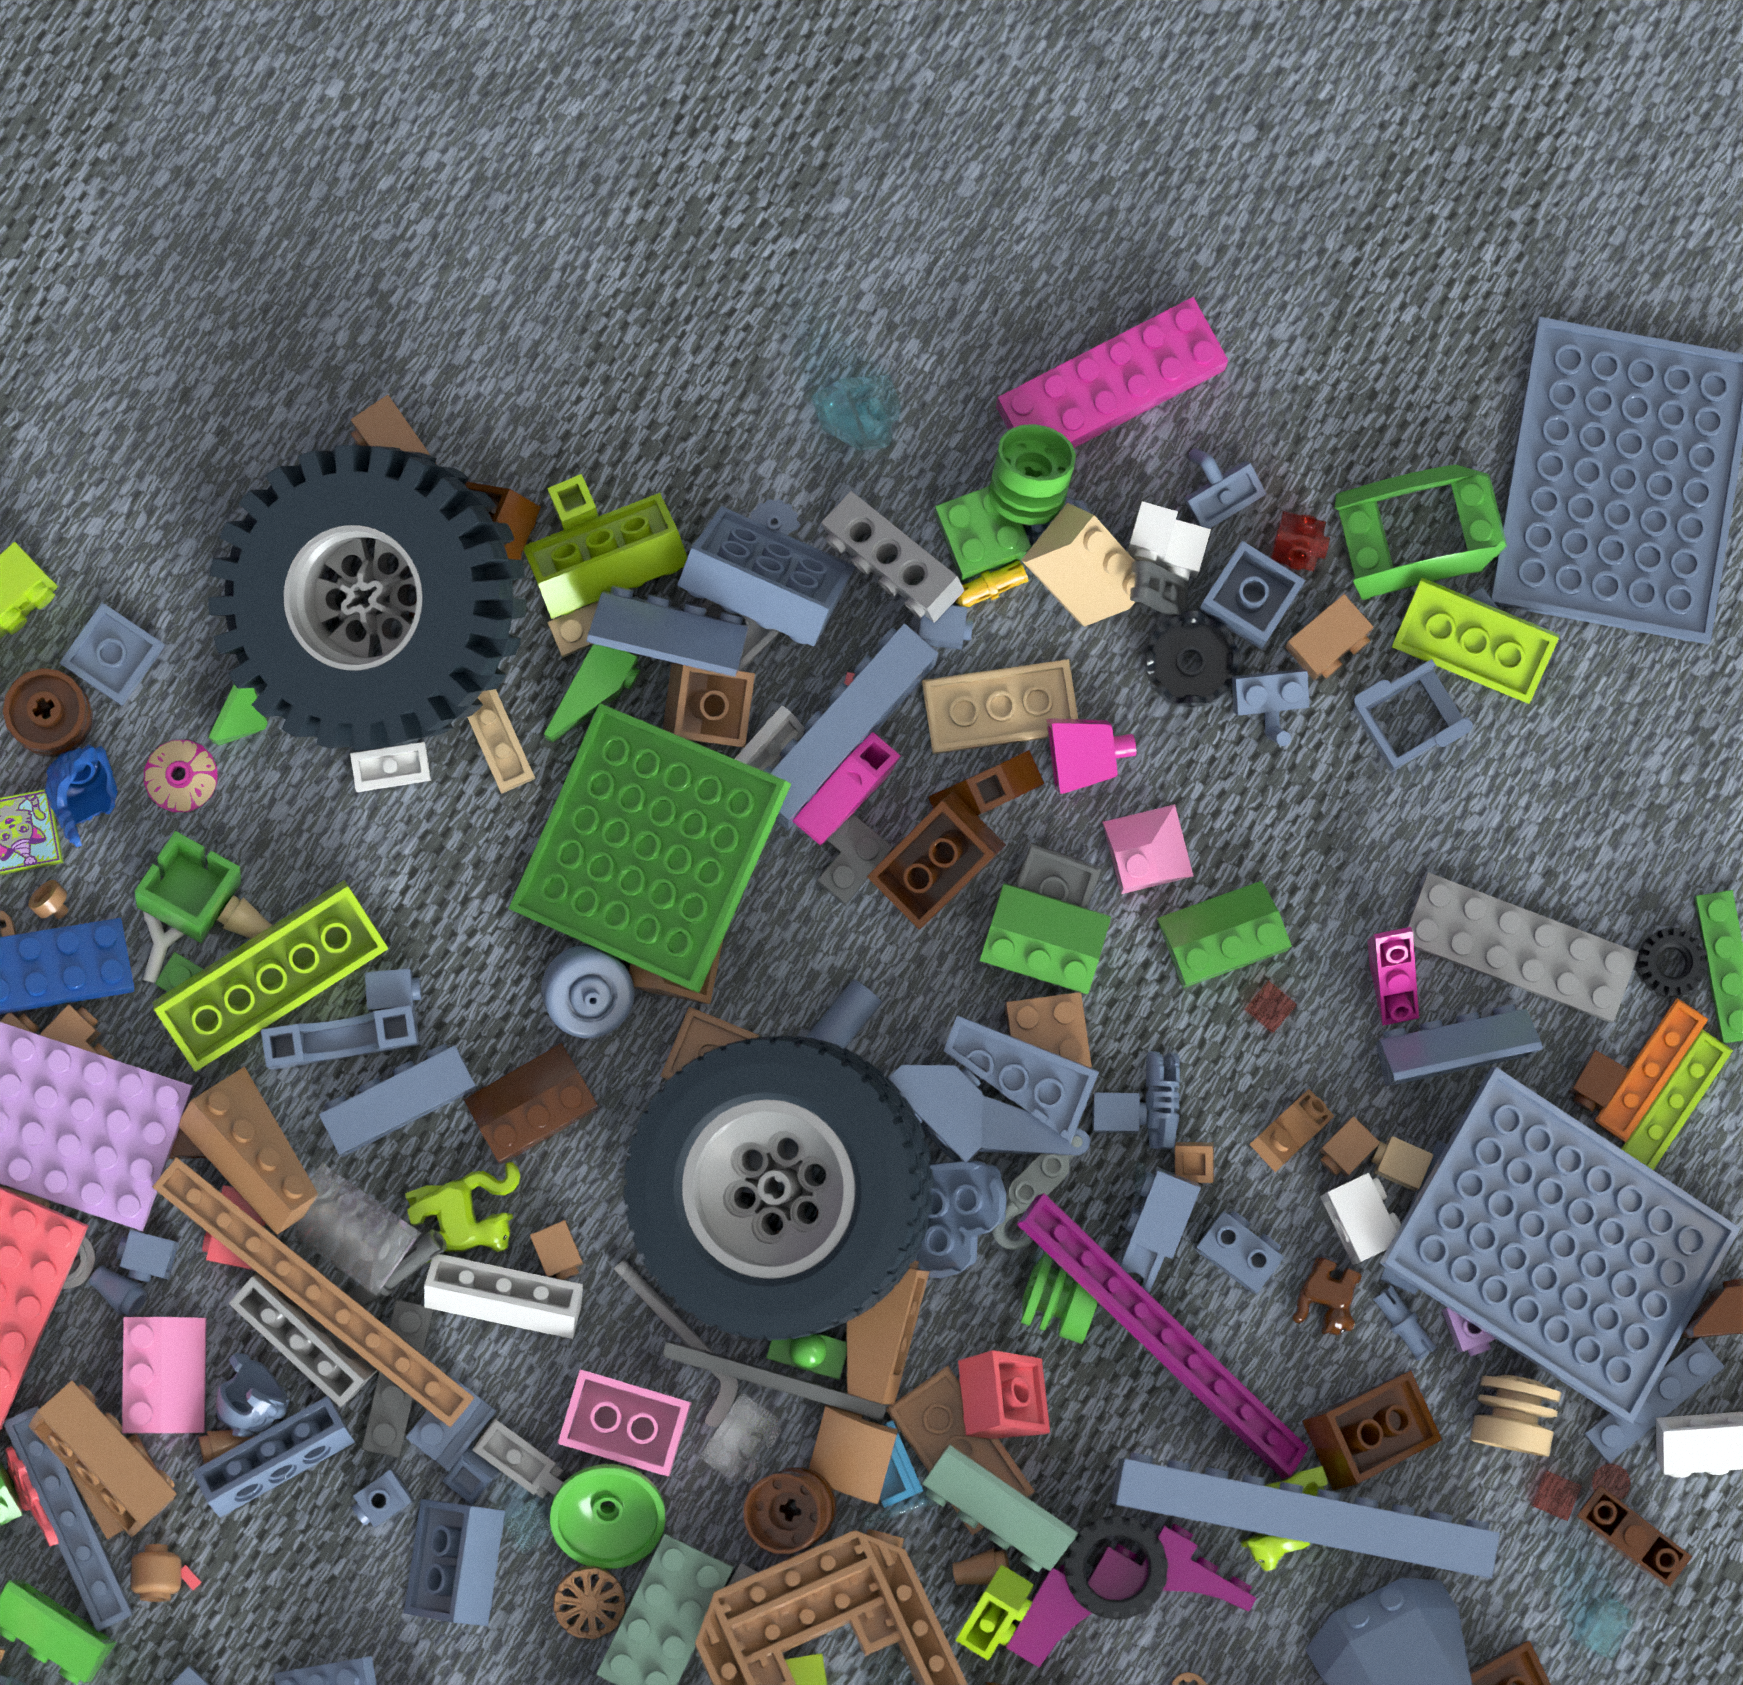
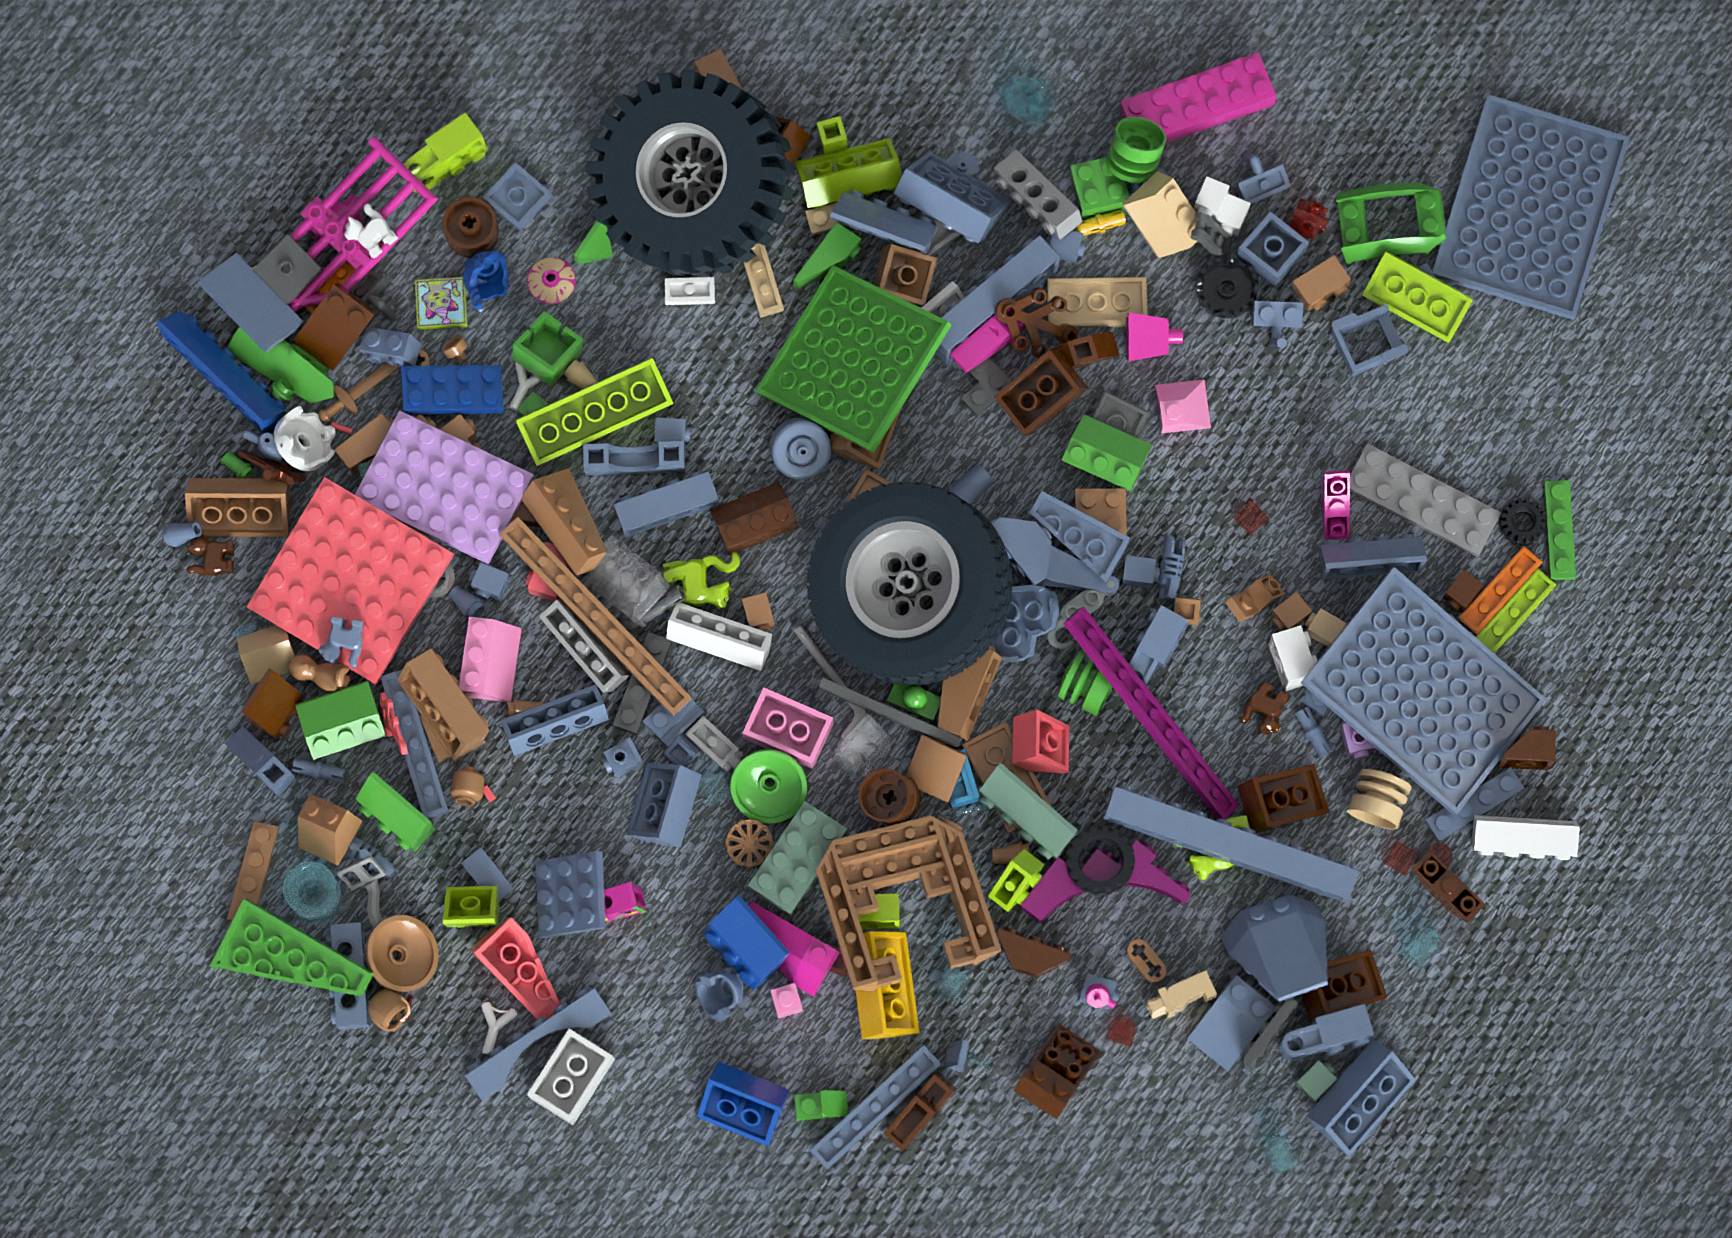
camera: 15 degrees right, 5 degrees down
(250, 1398) = (544, 681): sand blue helmet -> none
(911, 753) = (1032, 320): none -> reddish brown plant
(1224, 934) = (1226, 467): bright green slope -> none
(1240, 1251) = (1209, 671): sand blue brick -> none

